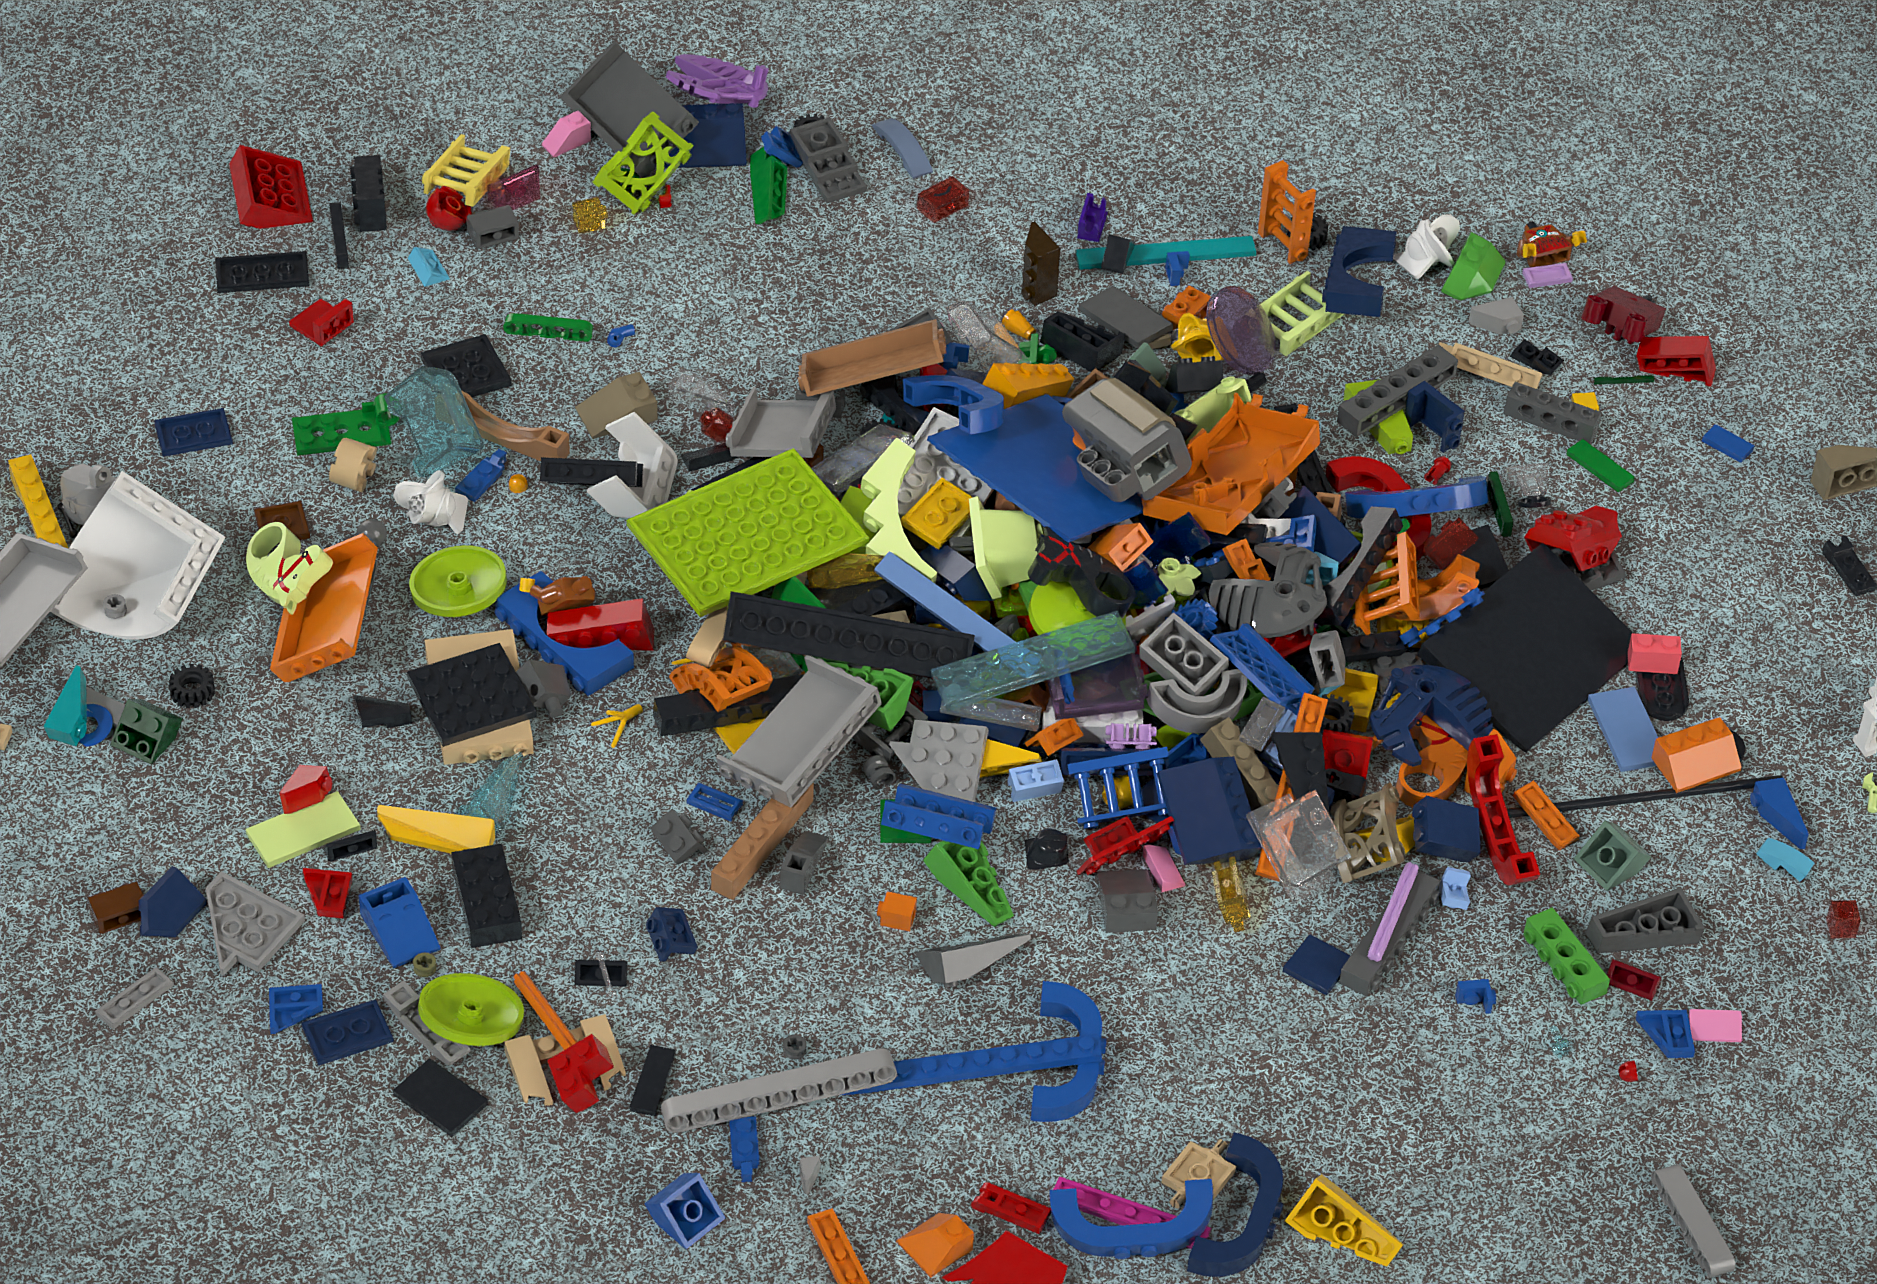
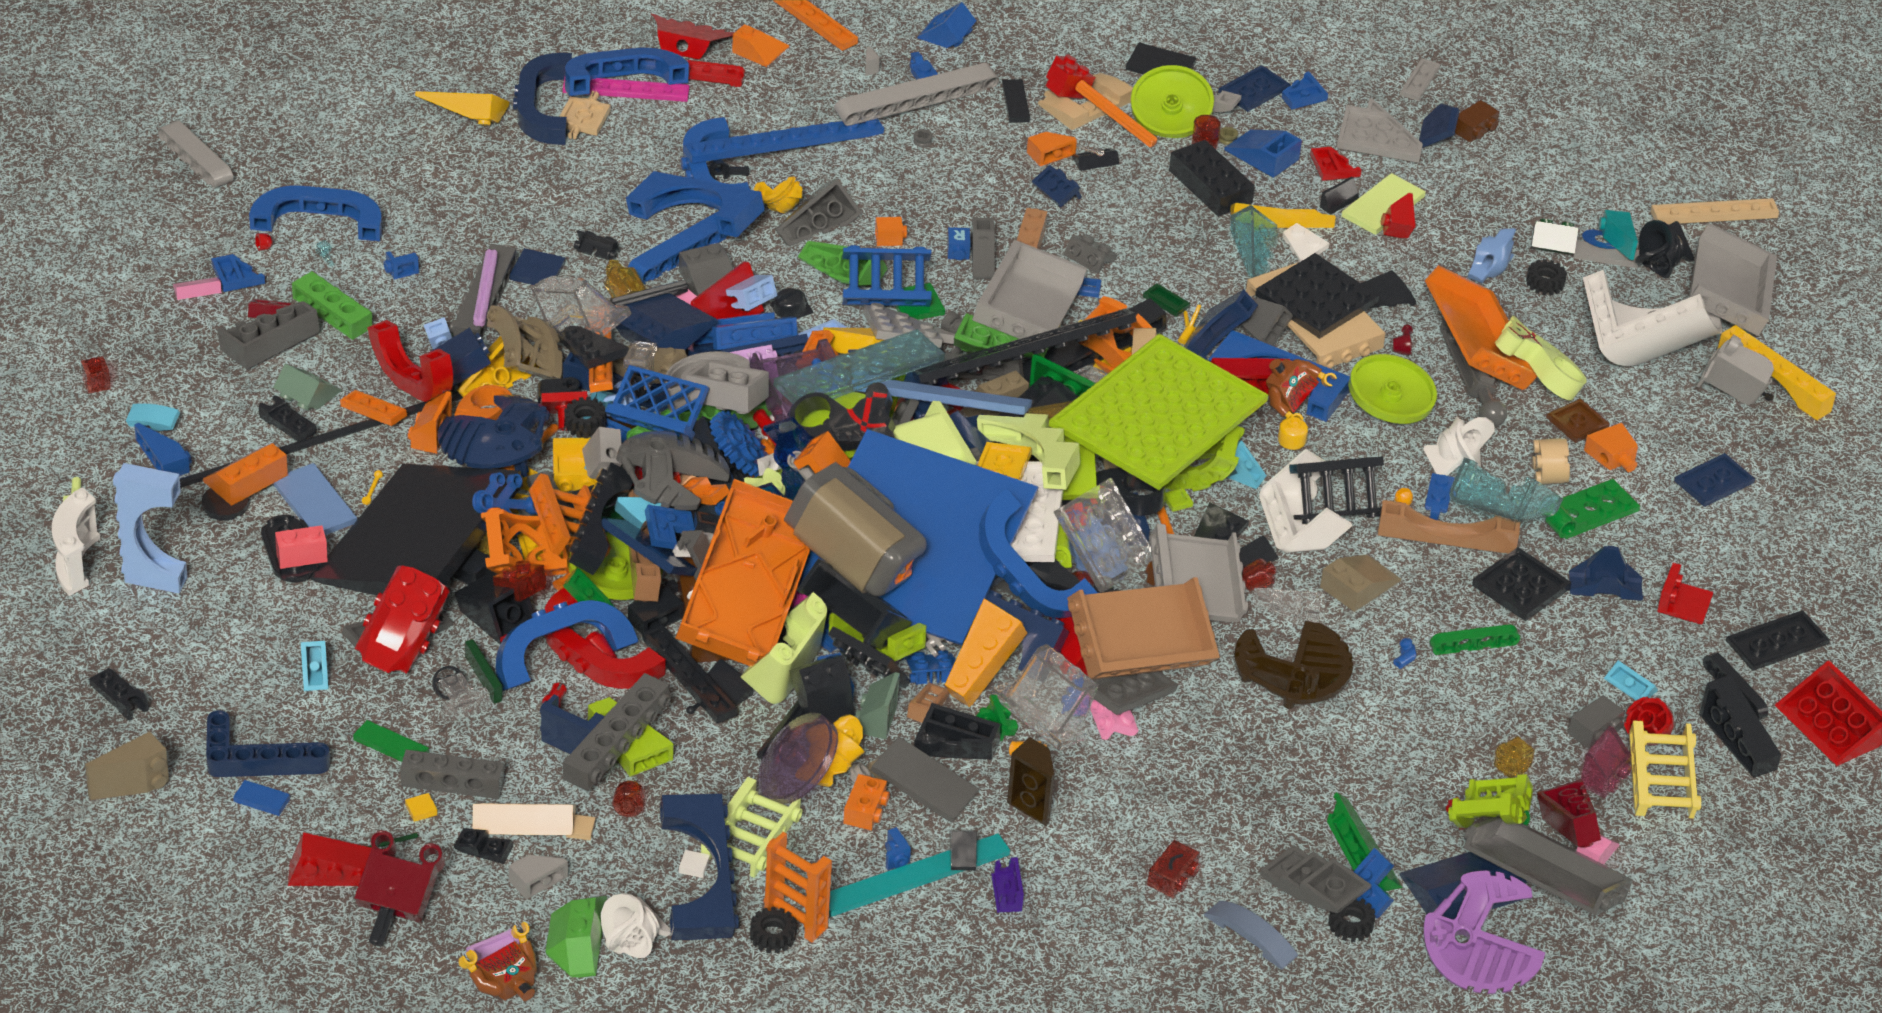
camera: 160 degrees right, 5 degrees down
(41, 672) = (1663, 247): none -> black helmet
(230, 709) = (1492, 255): none -> medium blue piece
(273, 477) = (1613, 447): none -> orange torso
(386, 352) = (1606, 574): none -> dark blue piece
(405, 642) = (1403, 343): none -> dark red bar
(428, 793) = (1304, 242): none -> white wing
(456, 954) = (1206, 128): none -> clear red wheel
(578, 144) = (1570, 813): none -> dark red wedge
(592, 560) = (1292, 433): none -> yellow head
(626, 762) = (1167, 300): none -> dark green tile
(651, 987) = (1050, 147): none -> orange slope
(669, 643) = (1219, 322): none -> dark blue arch
(729, 319) = (1318, 671): none -> dark brown piece
(826, 876) = (958, 243): none -> blue brick
(1010, 977) = (783, 196): none -> yellow helmet
(1094, 840) = (752, 291): none -> light blue hinge
(1133, 949) = (666, 255): none -> blue beam
(1137, 1021) = (662, 190): none -> blue arch
(1211, 862) = (673, 288): none -> black axle
(1240, 976) = (588, 241): none -> black hinge
(1396, 357) = (629, 799): none -> clear red head
(1554, 1109) = (317, 200): none -> blue arch
(1571, 721) = (367, 500): none -> yellow hinge
(1641, 820) = (287, 419): none -> black plate
(1659, 550) = (314, 665): none -> medium azure slope
(1728, 469) = (259, 759): none -> dark blue beam
(1831, 607) = (143, 562): none -> light blue arch

